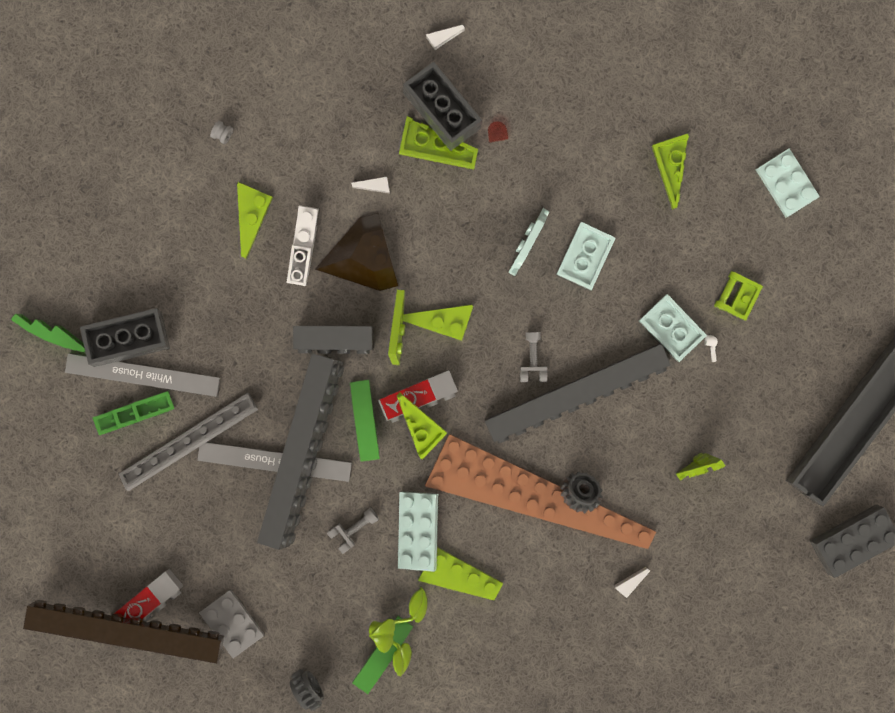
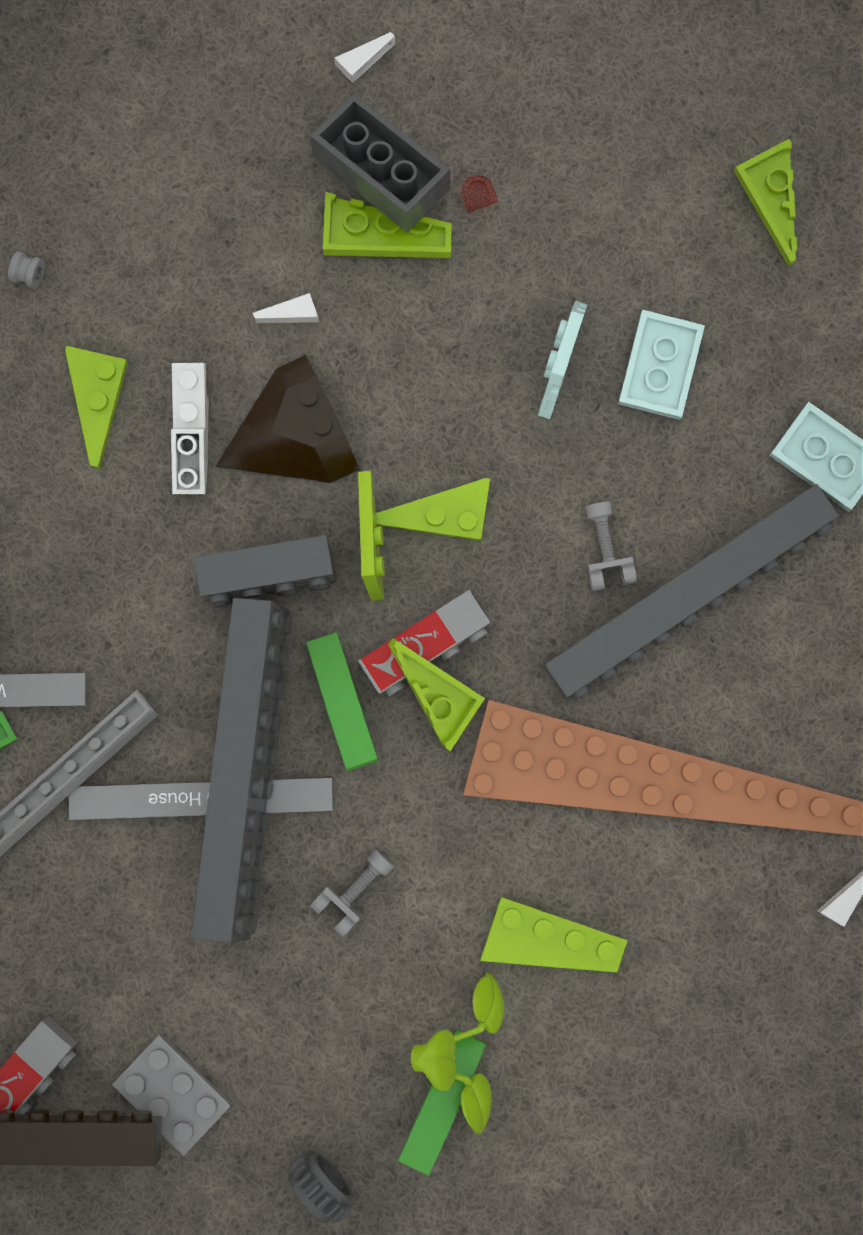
camera: 10 degrees left, 5 degrees down
(418, 531) = (465, 874): light aqua plate -> none
(590, 495) = (731, 757): dark grey gear -> none

